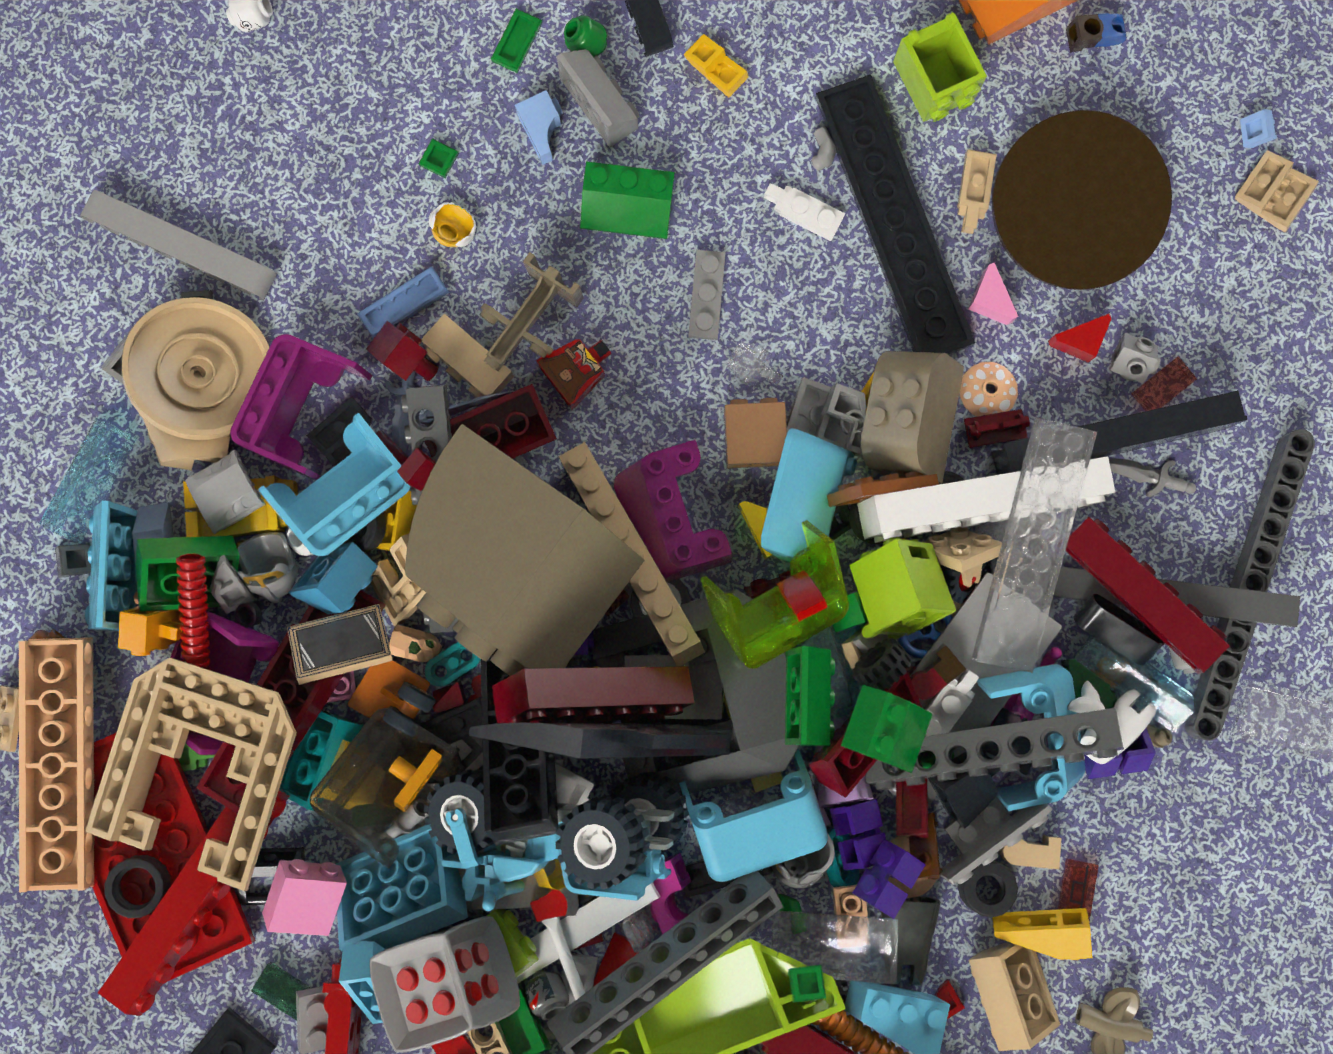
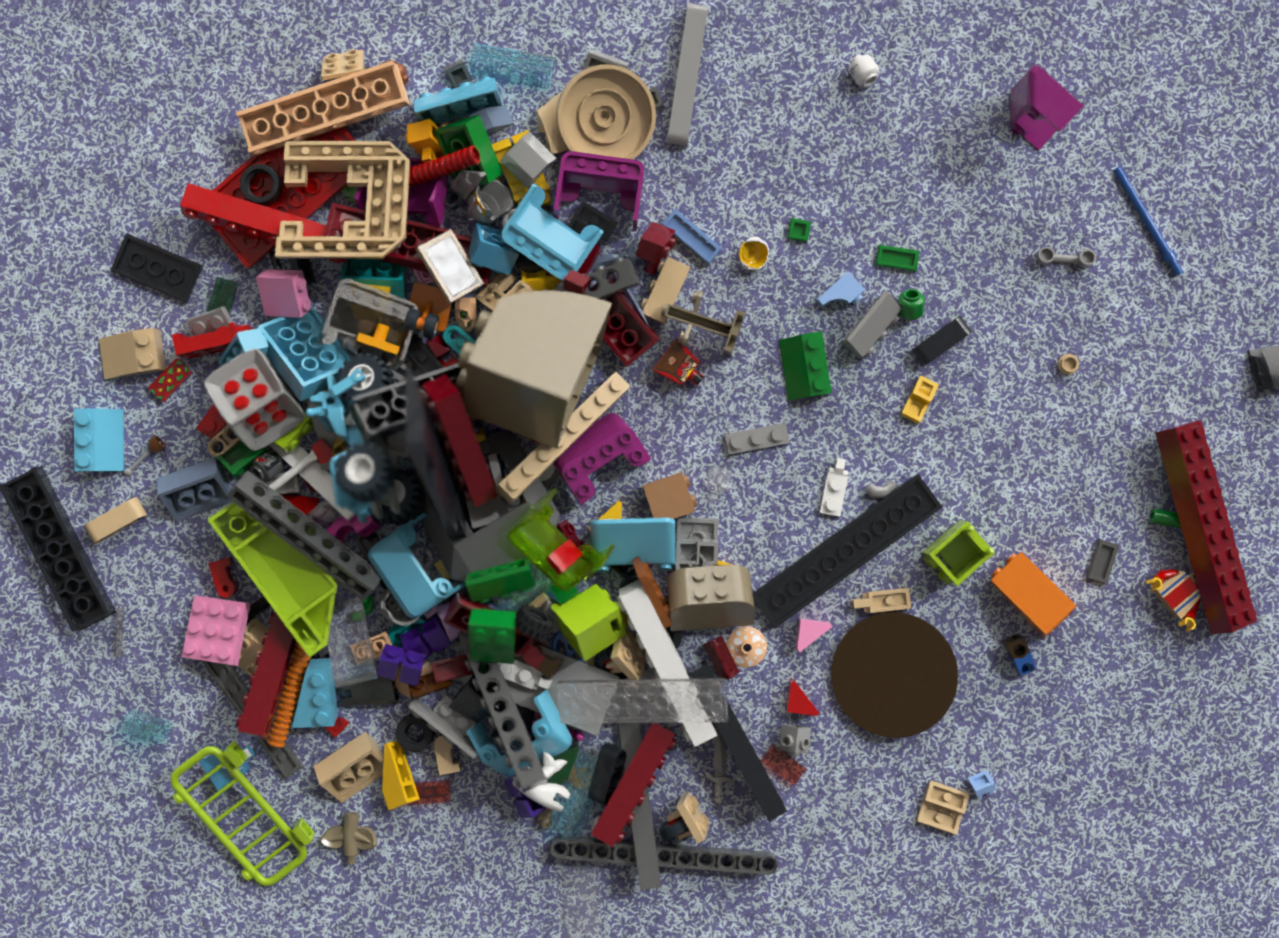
camera: 85 degrees right, 5 degrees up
(806, 983) = (318, 628): green tile -> none
(1212, 539) = (686, 820): none -> tan plate

